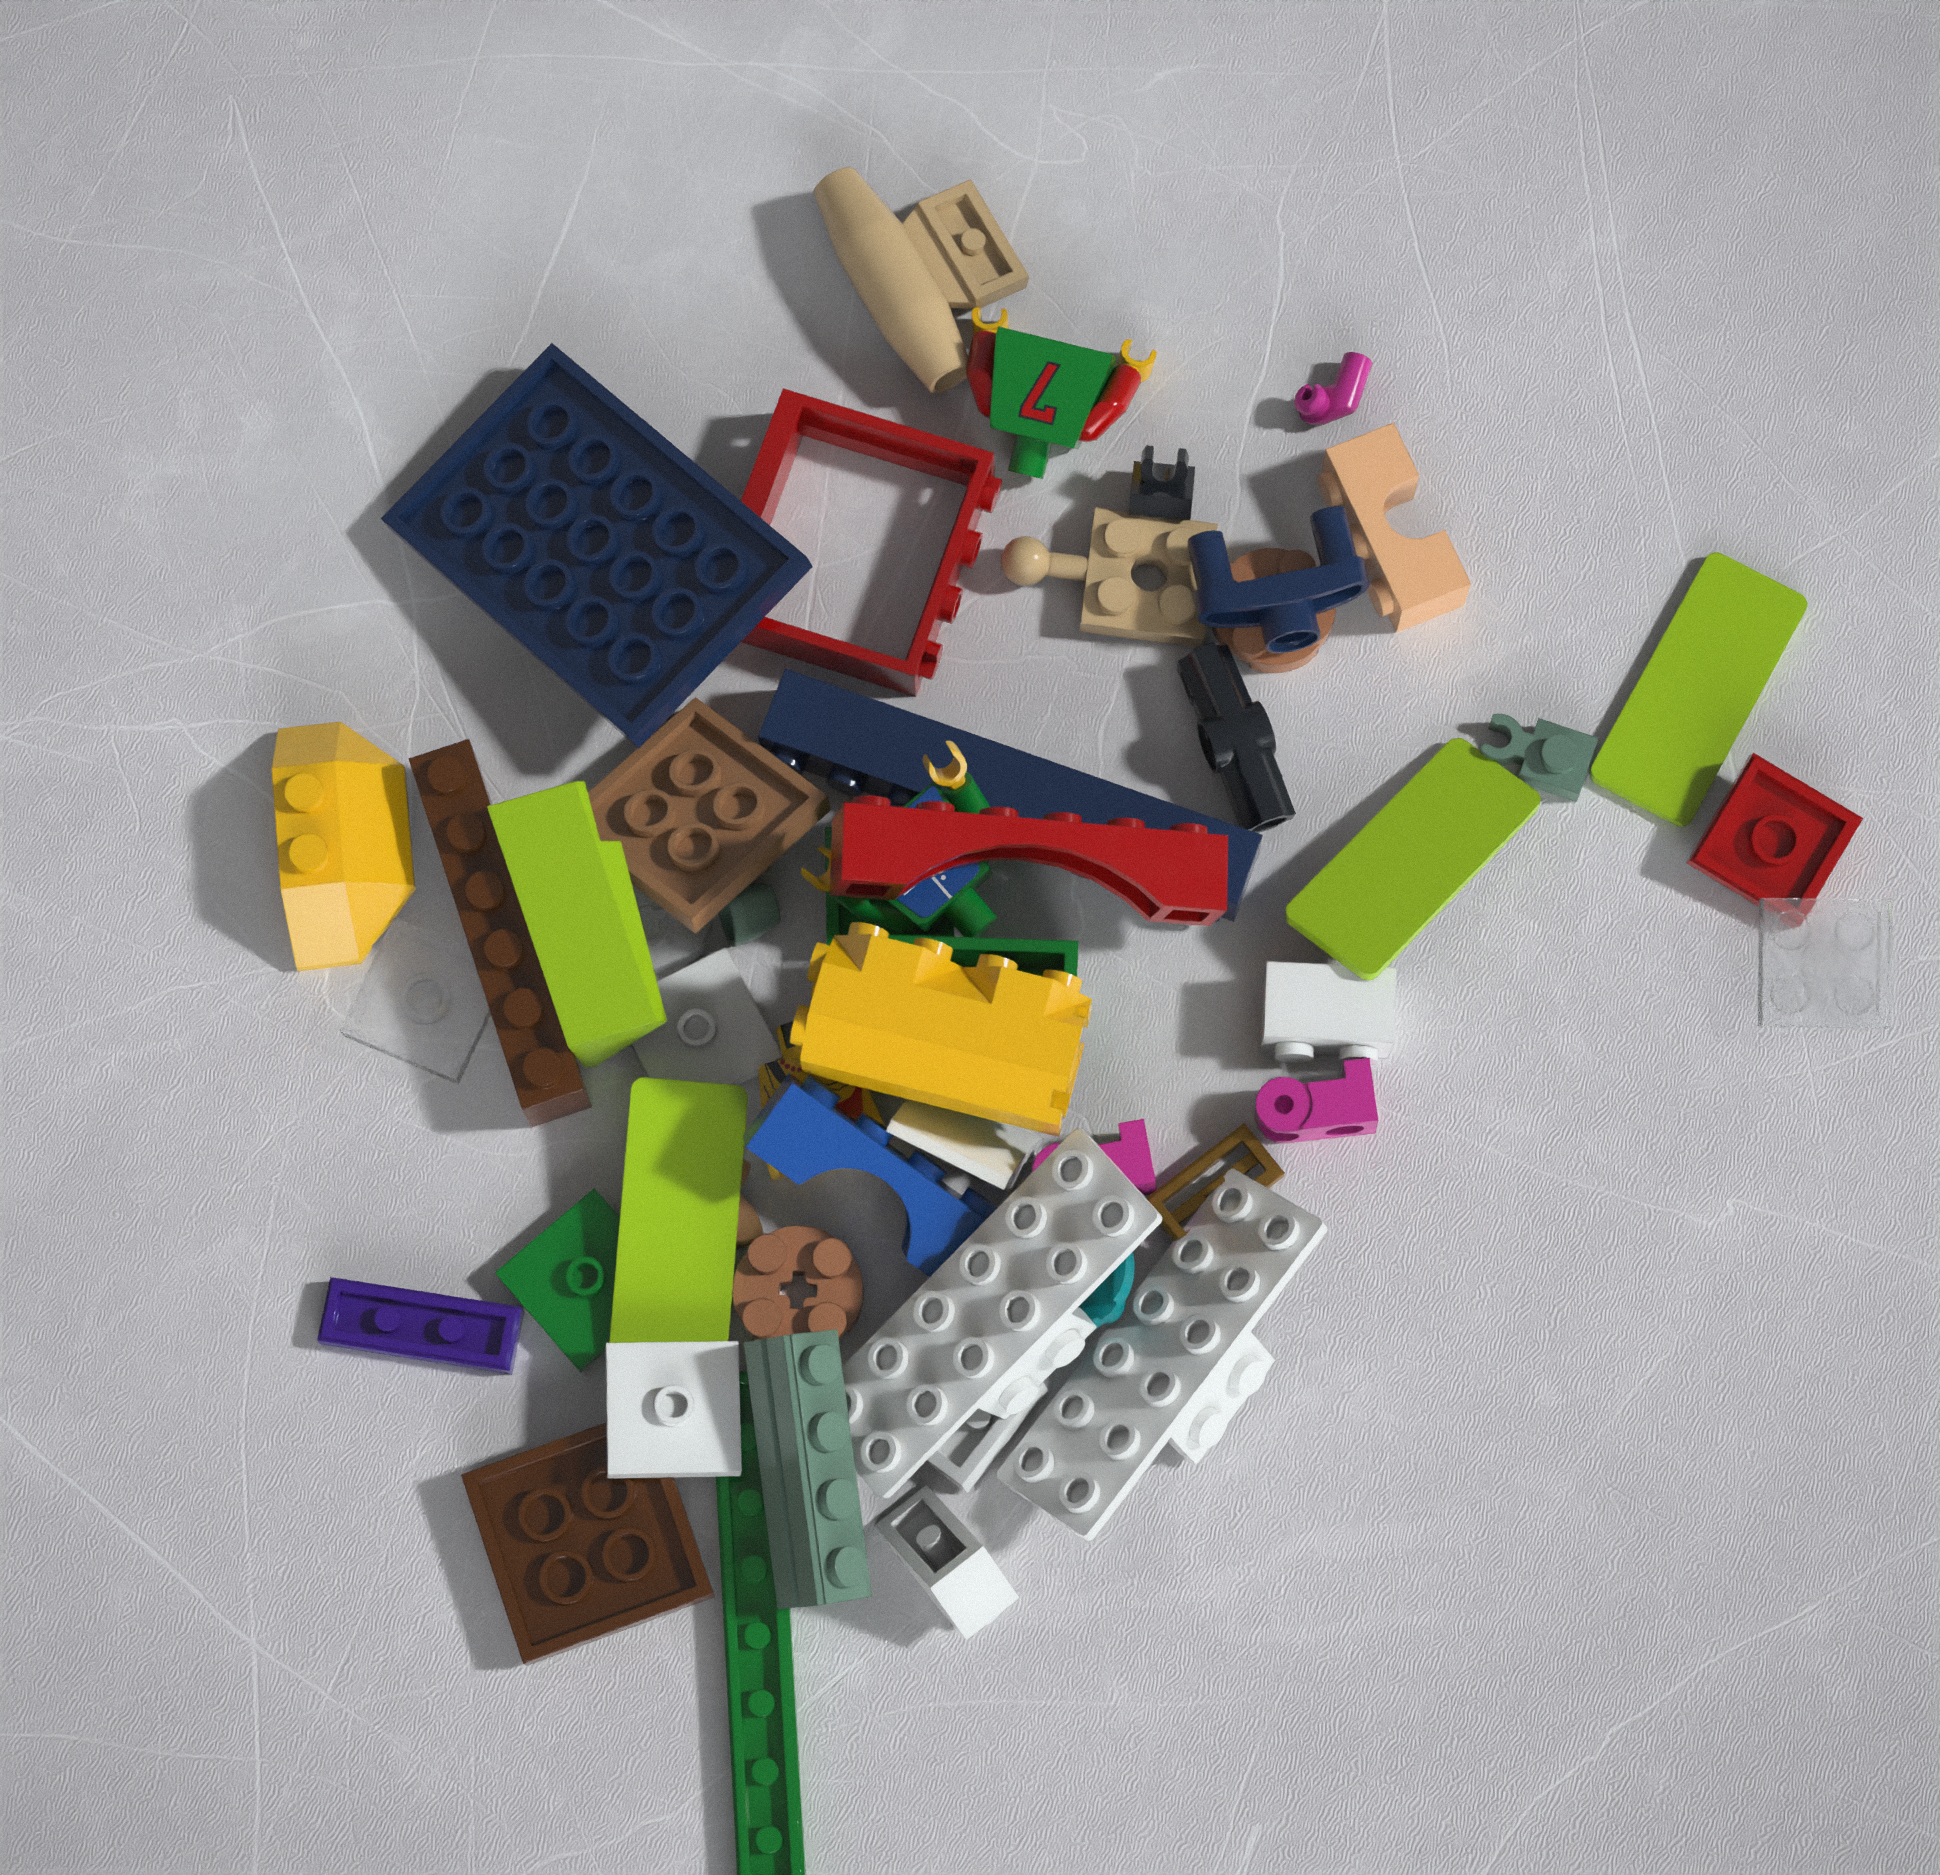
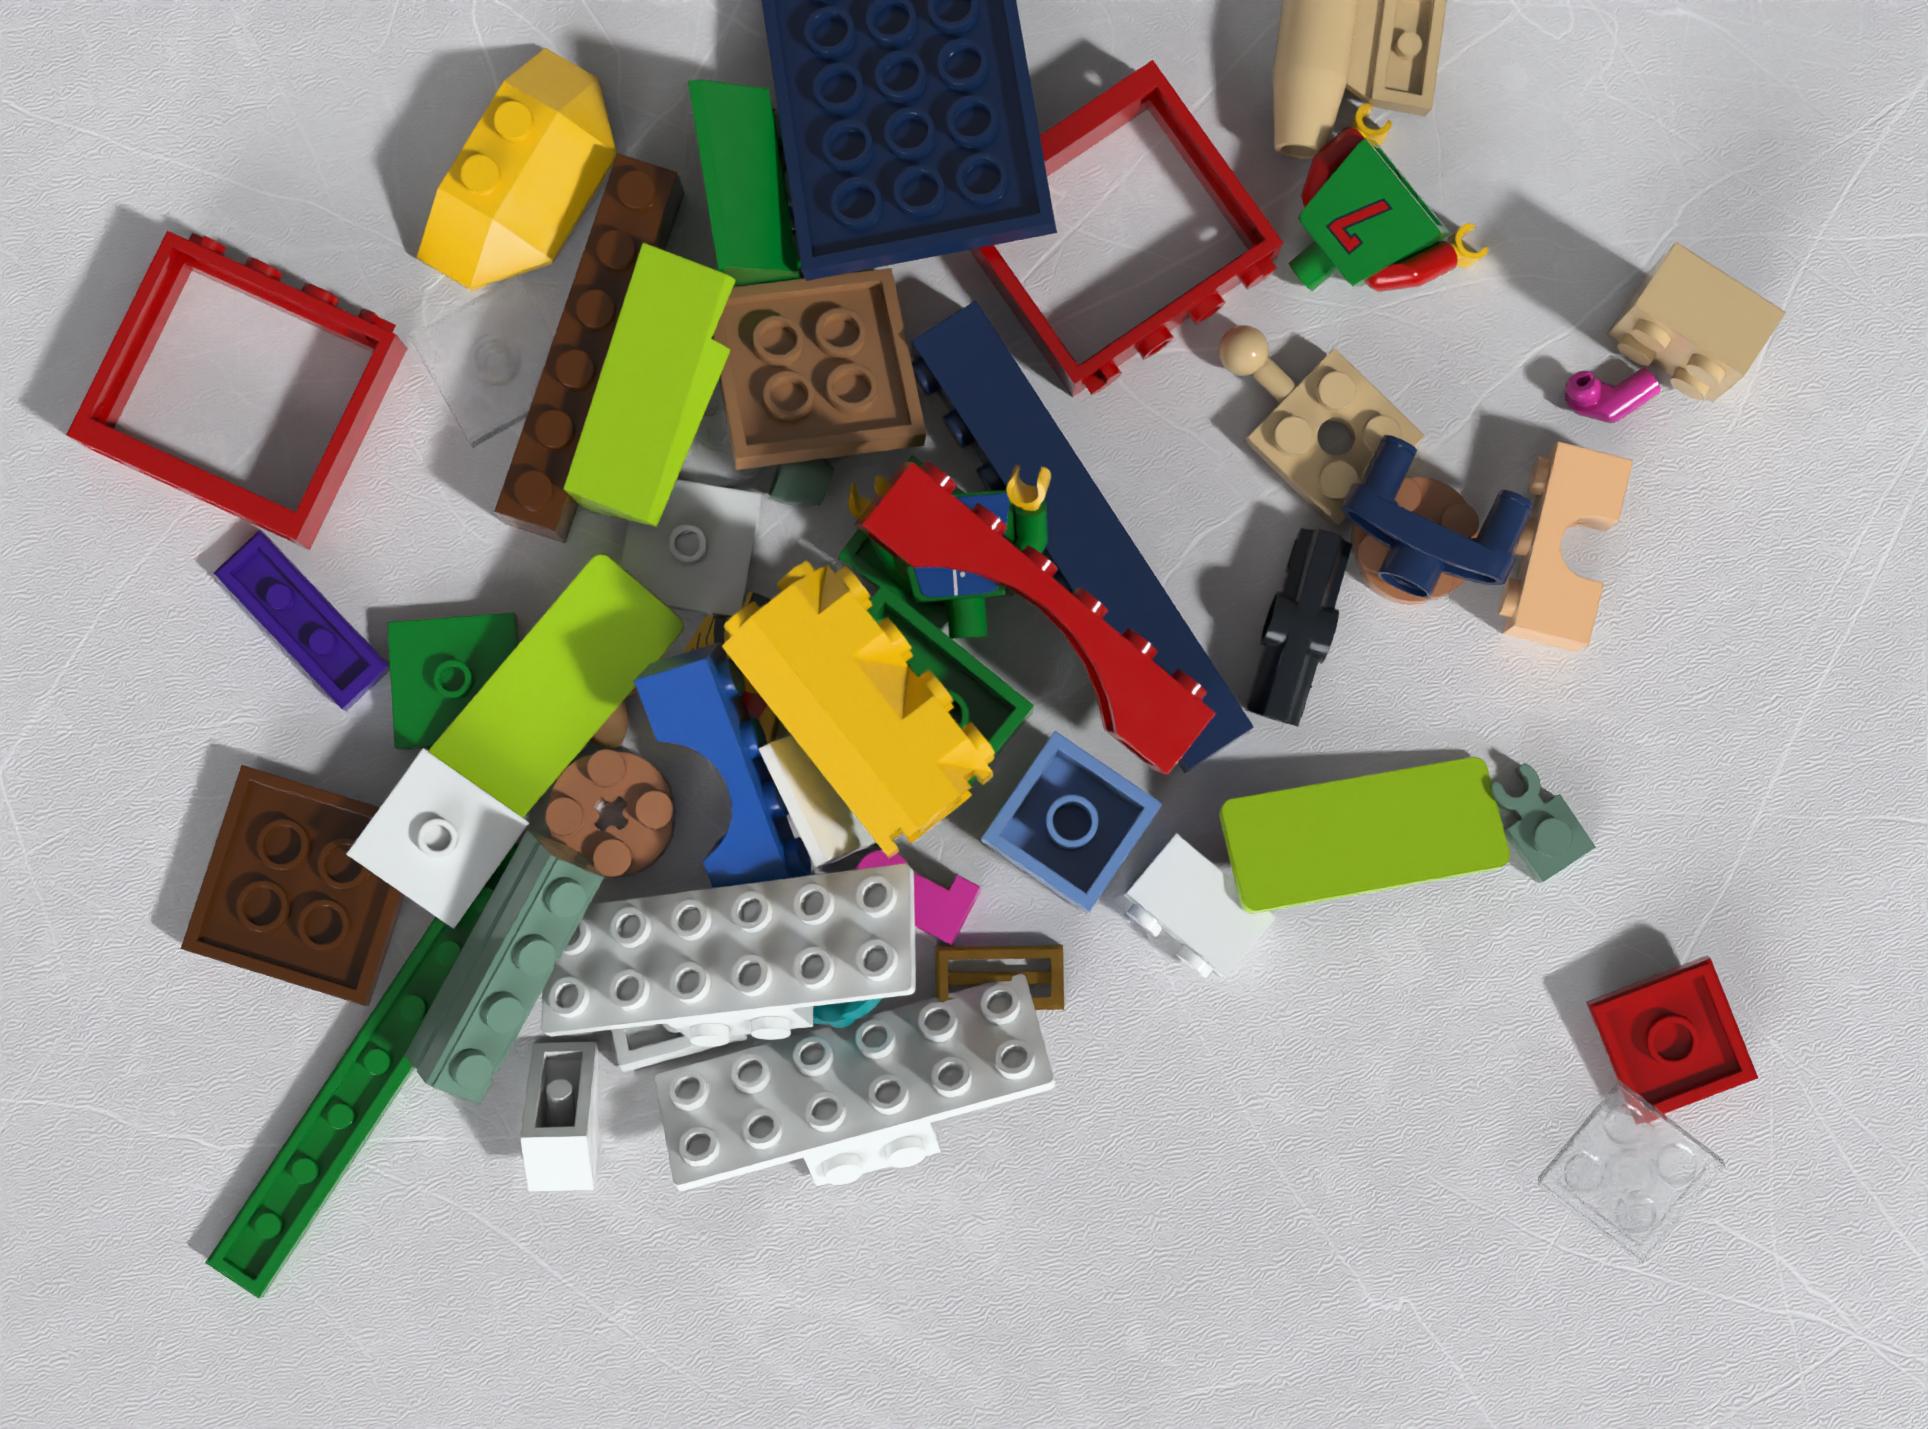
camera: 35 degrees right, 10 degrees up
(251, 1275) = (138, 335): none -> red window
(527, 711) = (745, 182): none -> green slope
(1162, 488) = (1402, 372): black tile -> none
(1177, 1016) = (1071, 822): none -> medium blue brick
(1319, 1109) = (1110, 969): dark pink leg -> none
(1359, 289) = (1695, 324): none -> tan brick
(1698, 689) = (1713, 865): lime piece -> none

